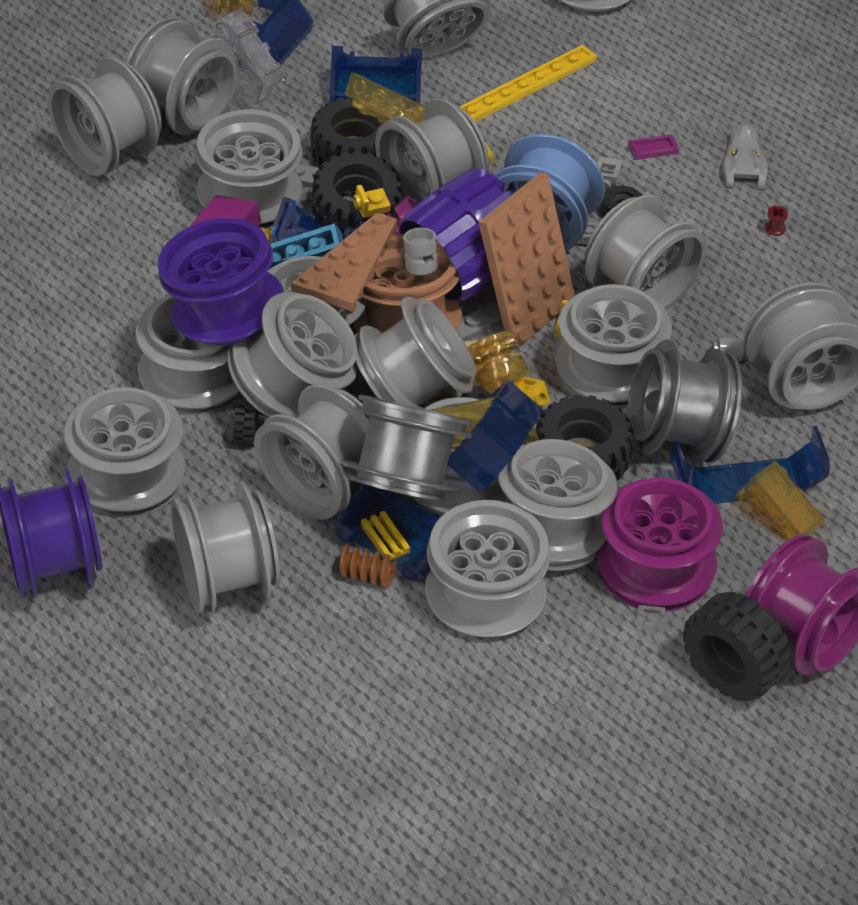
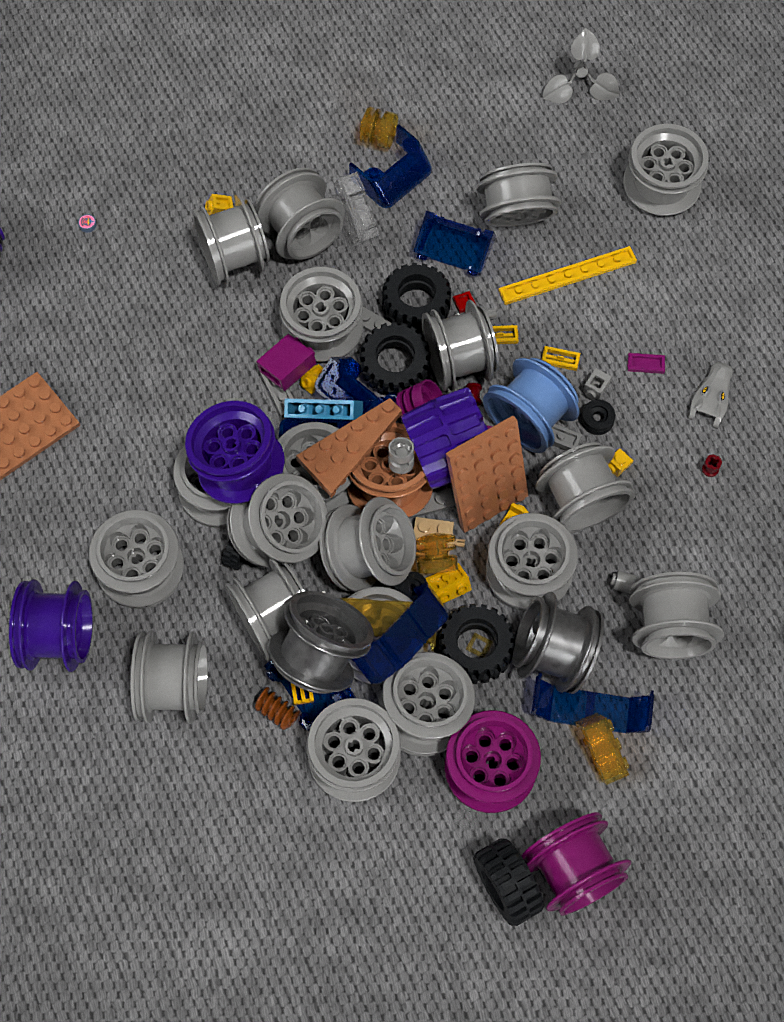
camera: 20 degrees right, 20 degrees up
(371, 201) = (397, 376): yellow bracket -> none
(381, 101) = (440, 281): clear yellow bracket -> none

